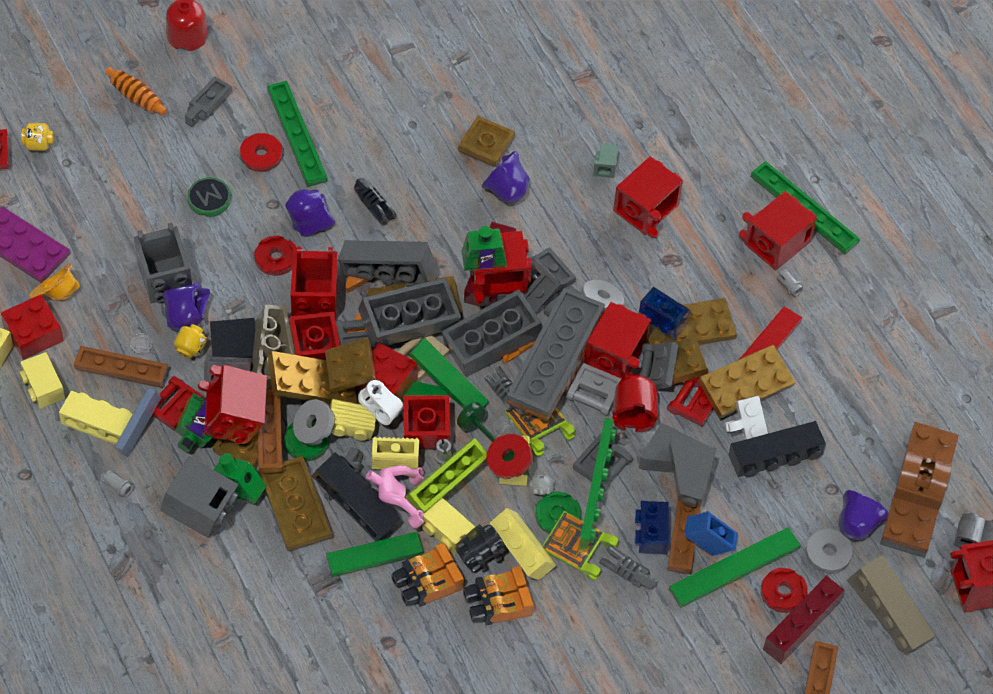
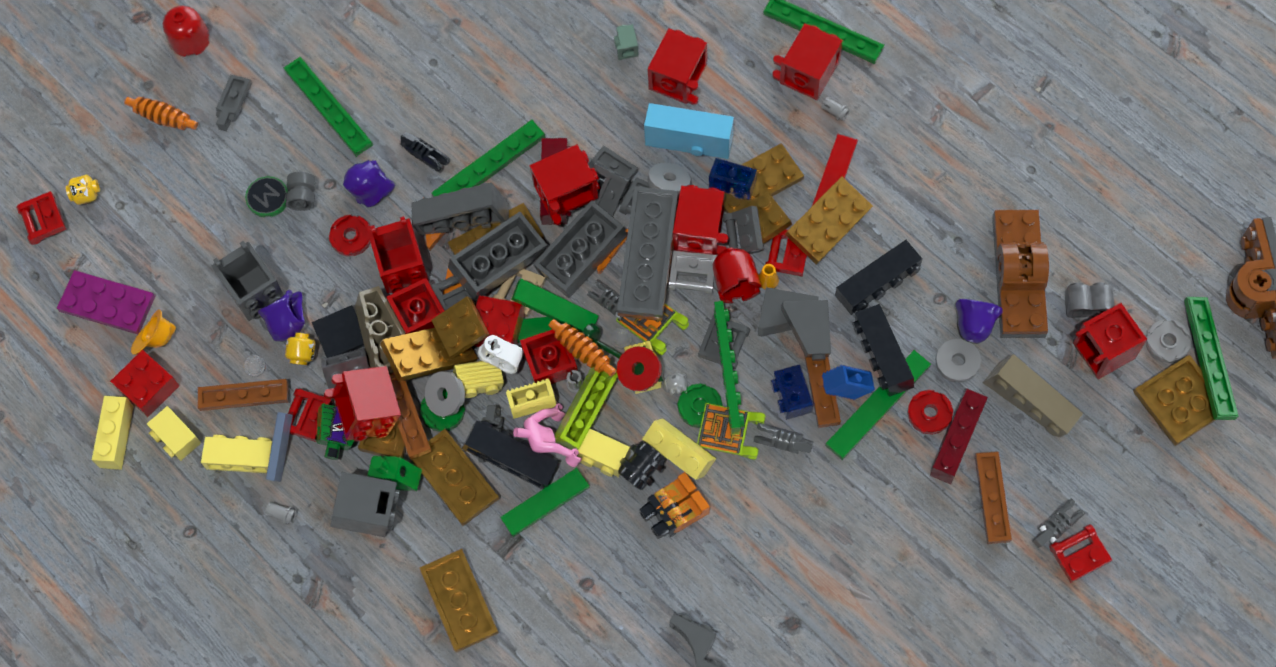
camera: 10 degrees left, 10 degrees up
(242, 200) = (301, 191): none -> dark grey wheel
(258, 142) = (298, 125): red tile -> none
(258, 616) = (458, 600): none -> pearl gold plate
(428, 577) = (602, 509): hips -> none
(444, 227) = (494, 159): none -> green plate
(461, 419) = (582, 347): none -> orange piece
(483, 250) = (549, 177): green torso -> none
(486, 141) = (508, 57): pearl gold plate -> none
(508, 180) = (542, 91): dark purple piece -> none
(637, 257) = (688, 131): none -> medium azure brick
(668, 414) = (768, 277): none -> light orange cone
(750, 418) = (845, 257): white plate -> none
(757, 517) = (883, 350): none -> black brick

